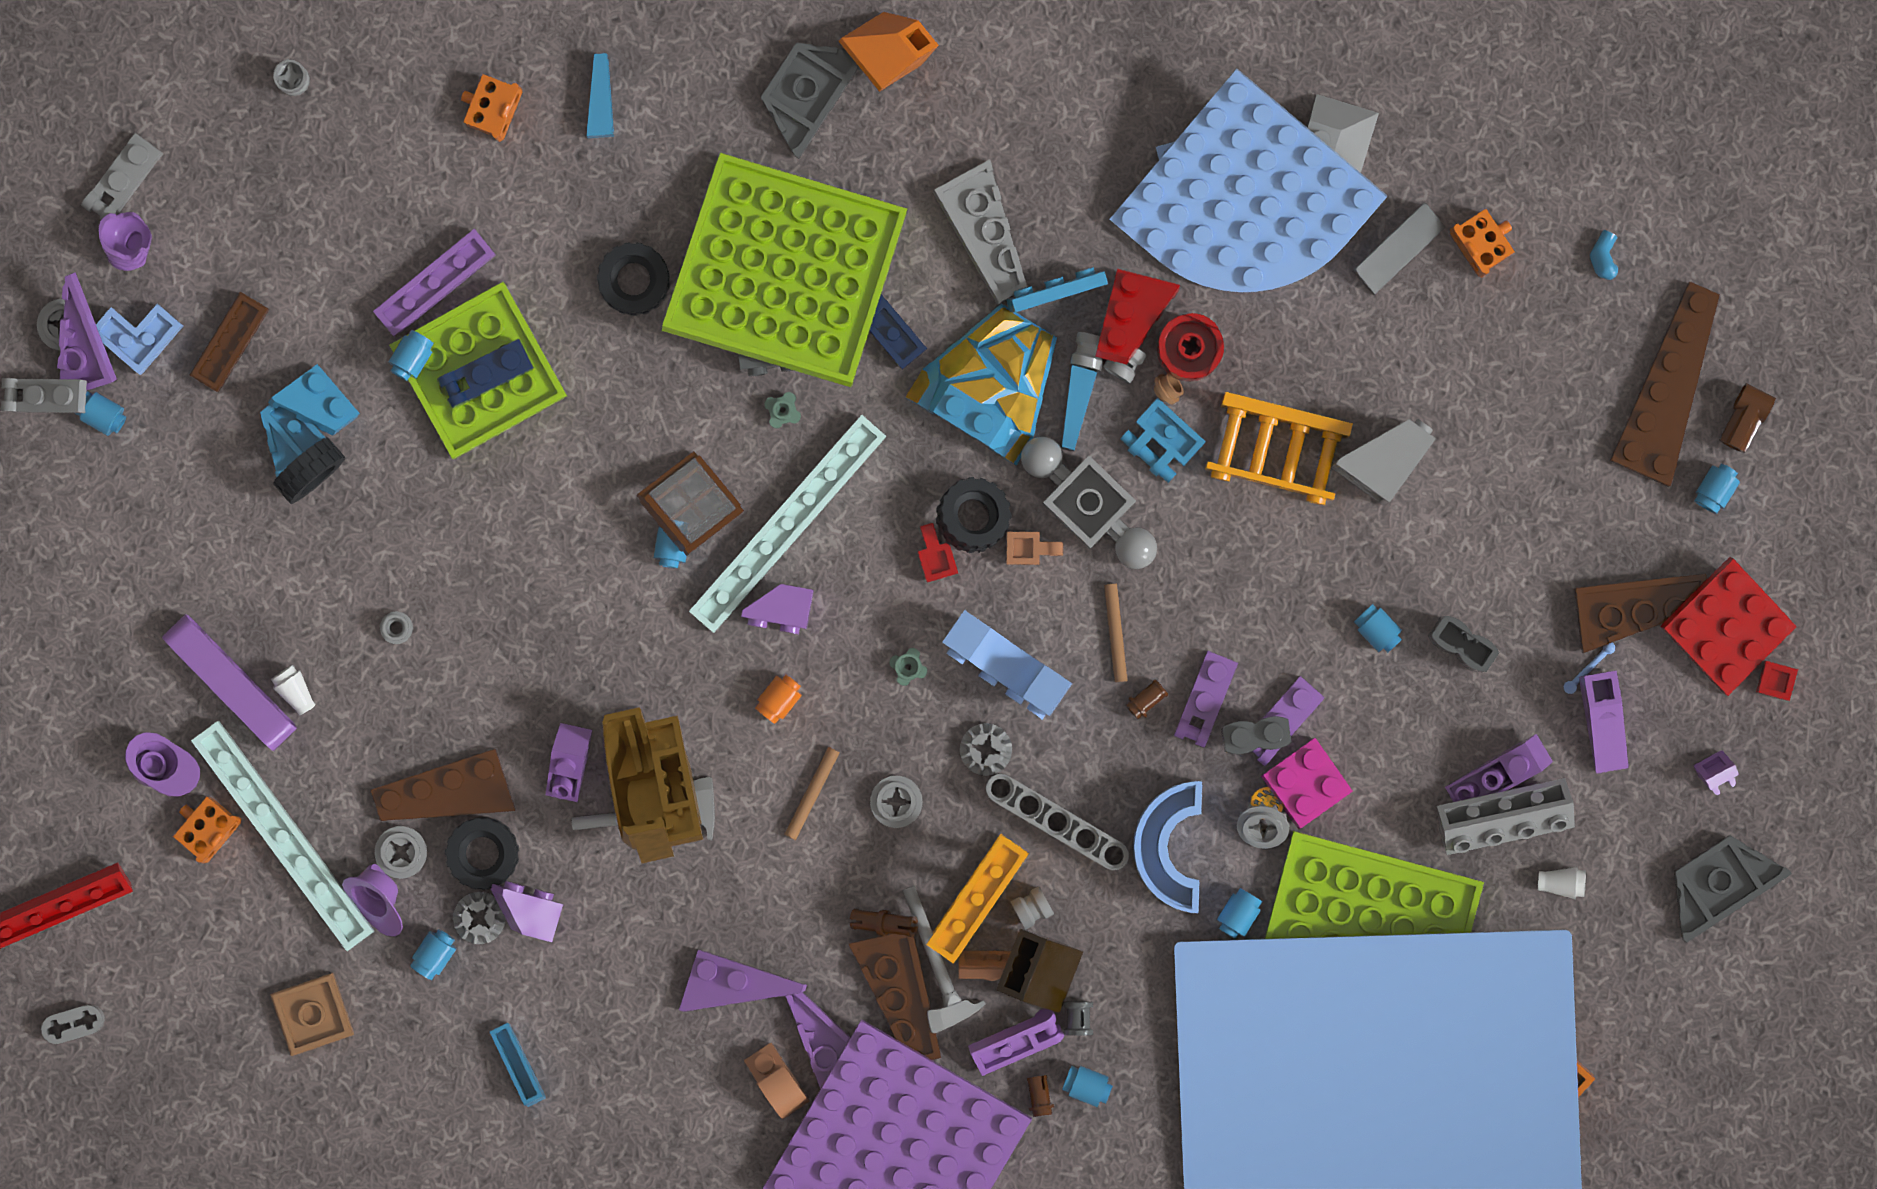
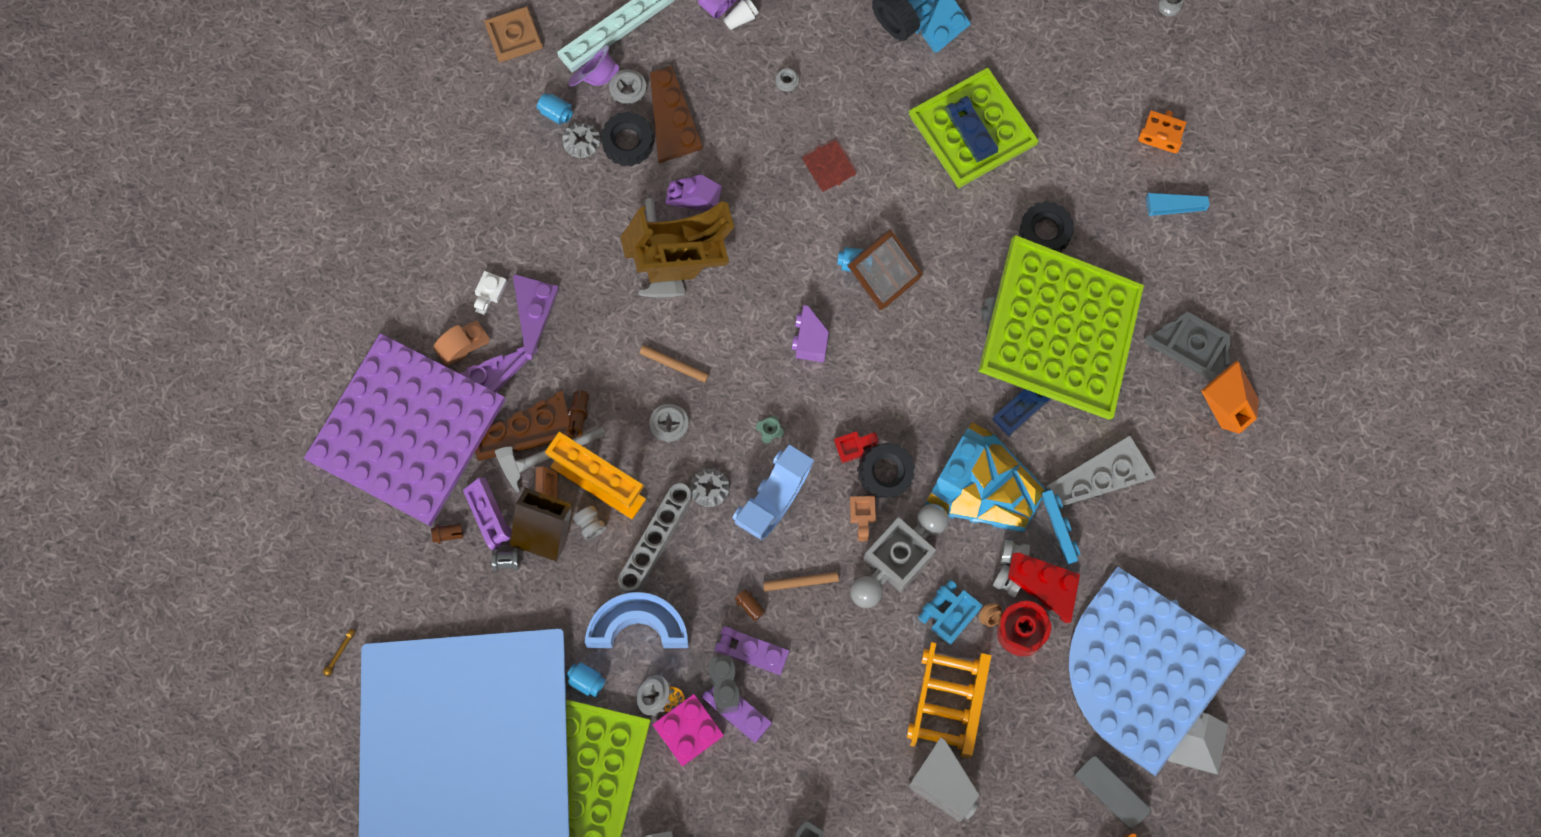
camera: 85 degrees right, 15 degrees down
(410, 355) = (981, 78): dark azure brick -> none
(434, 283) = (1033, 97): medium lavender plate -> none
(517, 1065) = (474, 167): dark azure piece -> none
(527, 573) = (829, 166): none -> clear red piece
(528, 913) = (584, 167): slope -> none
(698, 1042) = (488, 289): none -> white plate
(774, 405) = (954, 341): sand green plate -> none
(778, 698) = (743, 336): orange brick -> none
(787, 523) = (873, 340): light aqua plate -> none
(1079, 393) = (976, 547): dark azure piece -> none
(1087, 1085) = (453, 567): dark azure brick -> none
(1378, 629) = (810, 783): dark azure brick -> none

